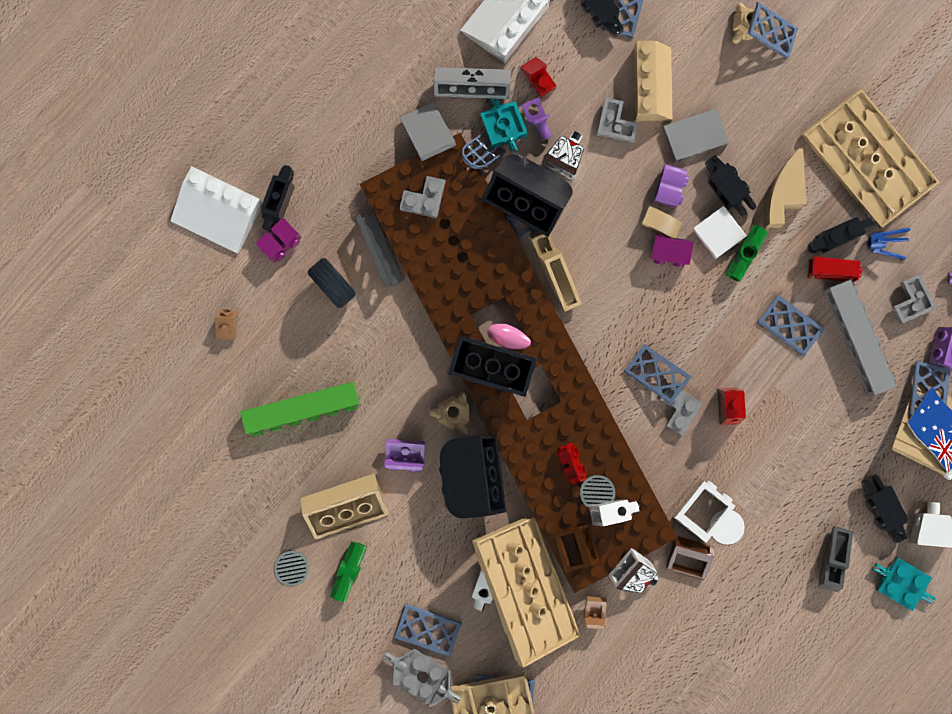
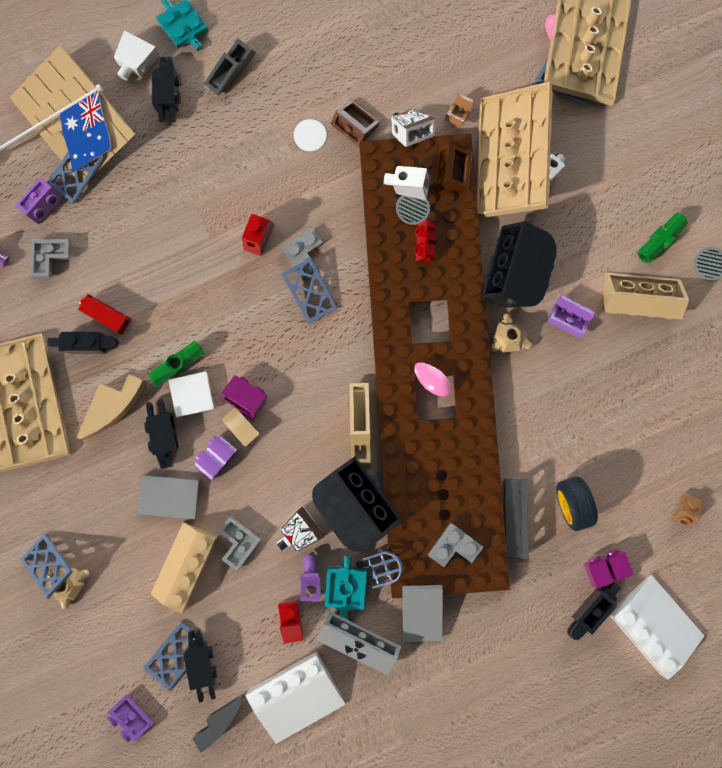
camera: 155 degrees left, 0 degrees up
(300, 408) = (649, 400): bright green brick -> none
(406, 677) = (630, 107): light grey plate -> none
(414, 640) = (611, 145): sand blue window -> none
(491, 365) = (463, 355): black brick -> none
(691, 526) = (333, 168): white window -> none
(805, 321) = (161, 297): sand blue window -> none
(859, 338) = (112, 243): light grey brick -> none
(878, 241) = (52, 322): blue plant -> none

